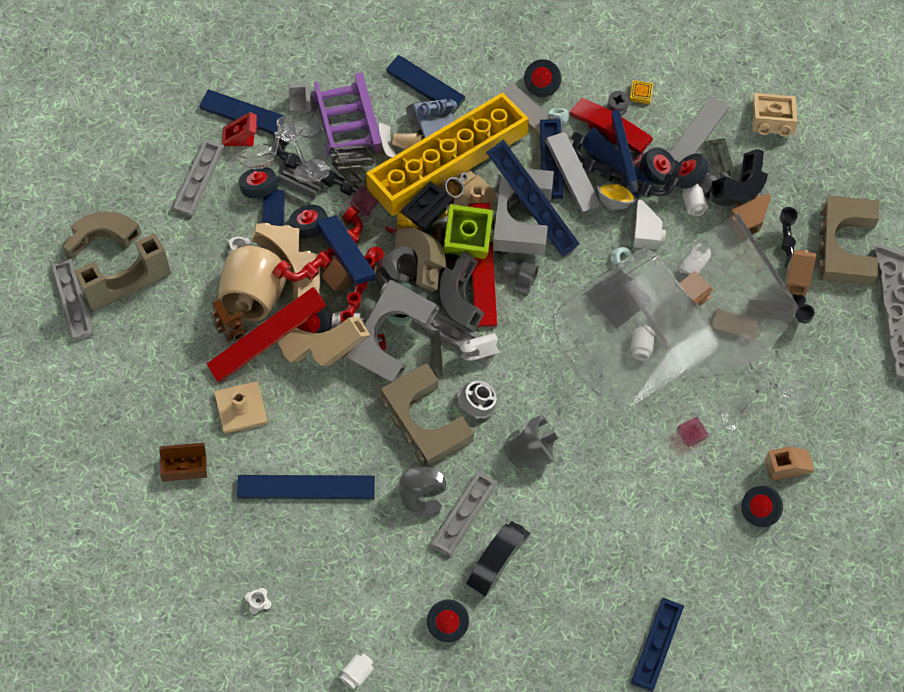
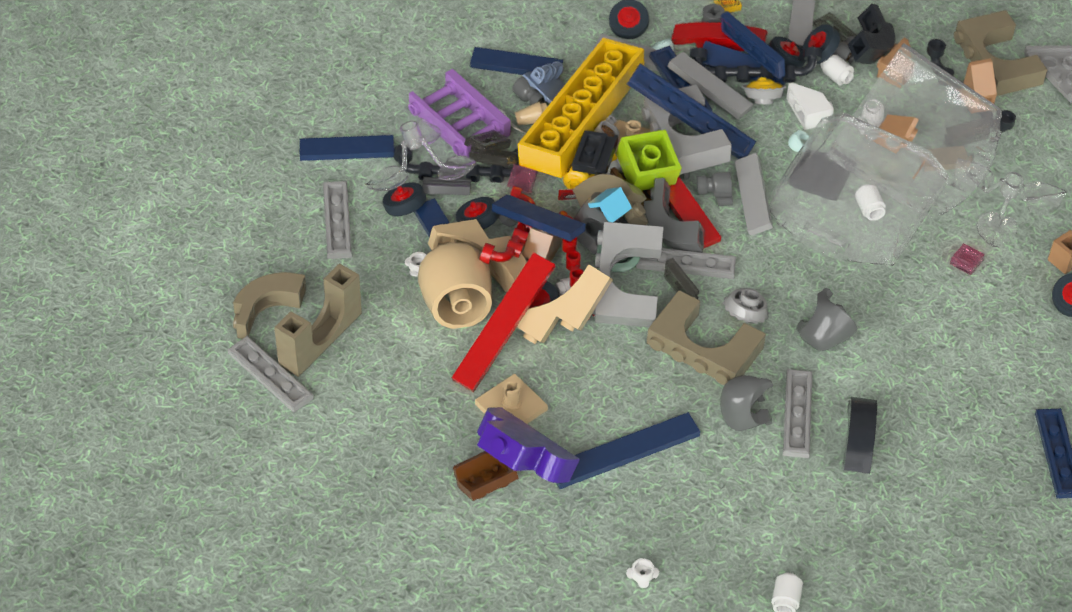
camera: 25 degrees left, 15 degrees down
(216, 453) = (524, 447): none -> dark purple brick
(232, 326) = (453, 328): reddish brown bracket -> none
(240, 131) = (357, 161): red slope -> none
(300, 98) = (400, 111): light grey panel -> none
(404, 265) = (612, 203): none -> medium azure panel
(448, 620) = (847, 510): black wheel -> none
(479, 347) = (721, 258): white piece -> none
(548, 294) = (753, 194): none -> light grey tile

